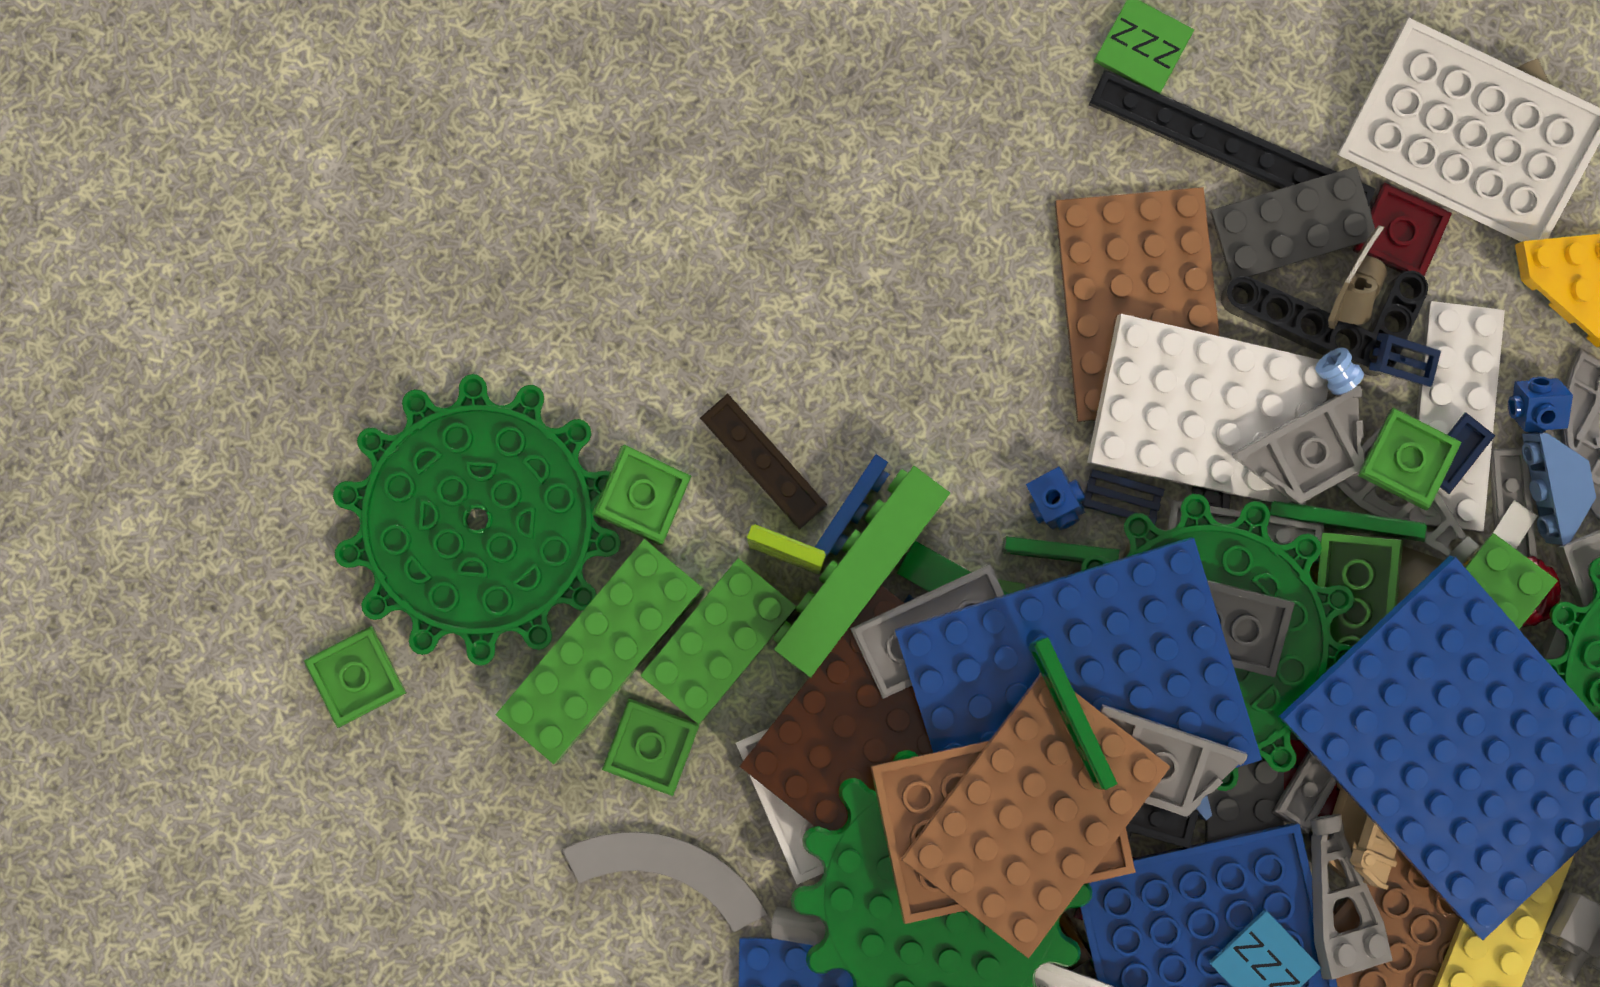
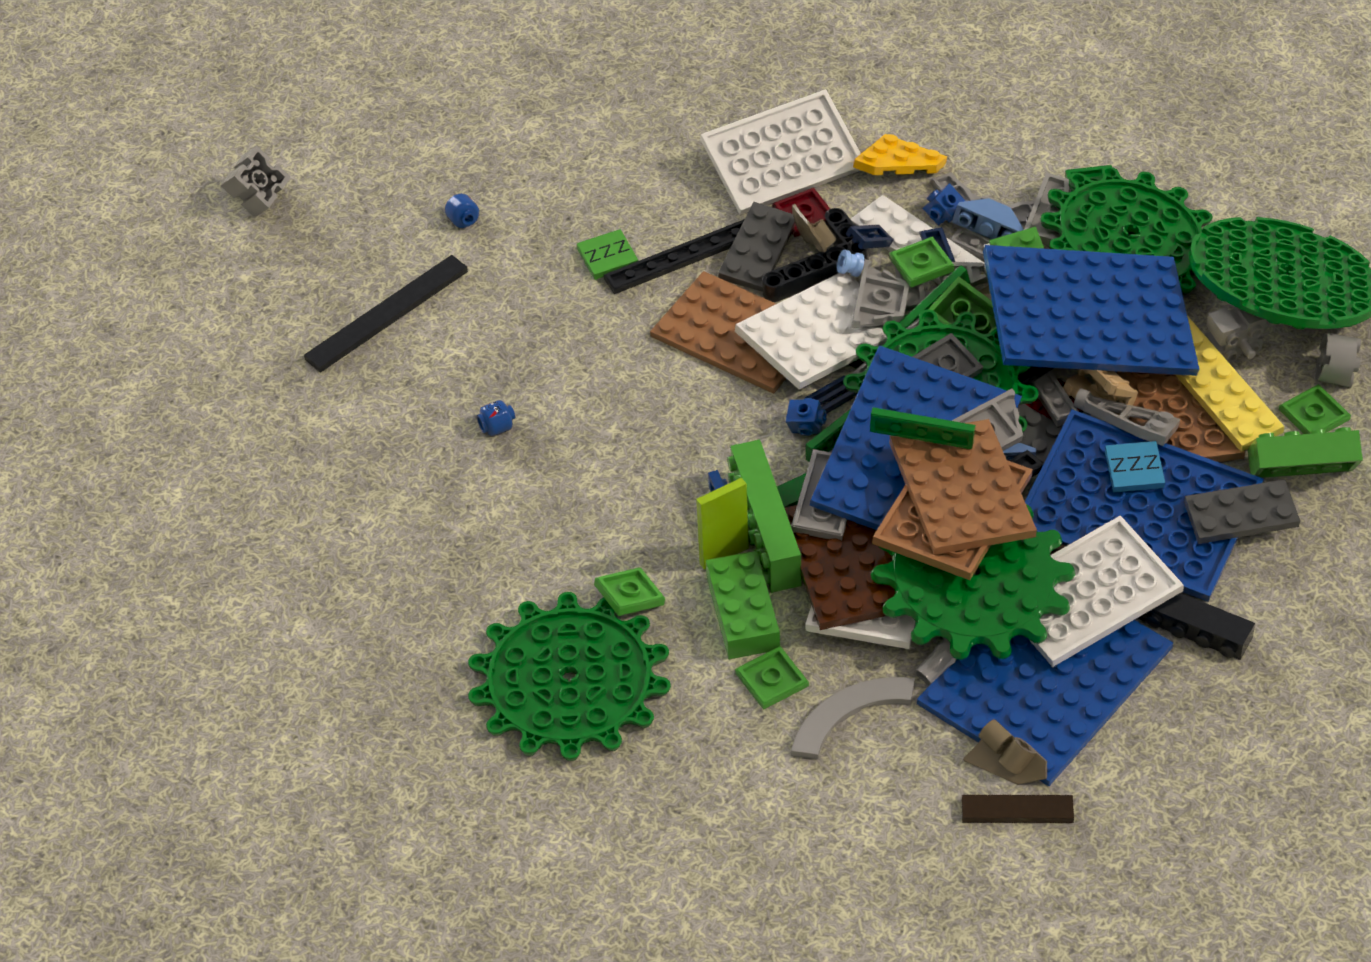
camera: 45 degrees left, 35 degrees down
(355, 676) = (600, 791): bright green tile -> none
(599, 652) = (697, 661): bright green brick -> none
(763, 461) = (655, 534): dark brown tile -> none
(778, 129) = (495, 418): none -> blue head

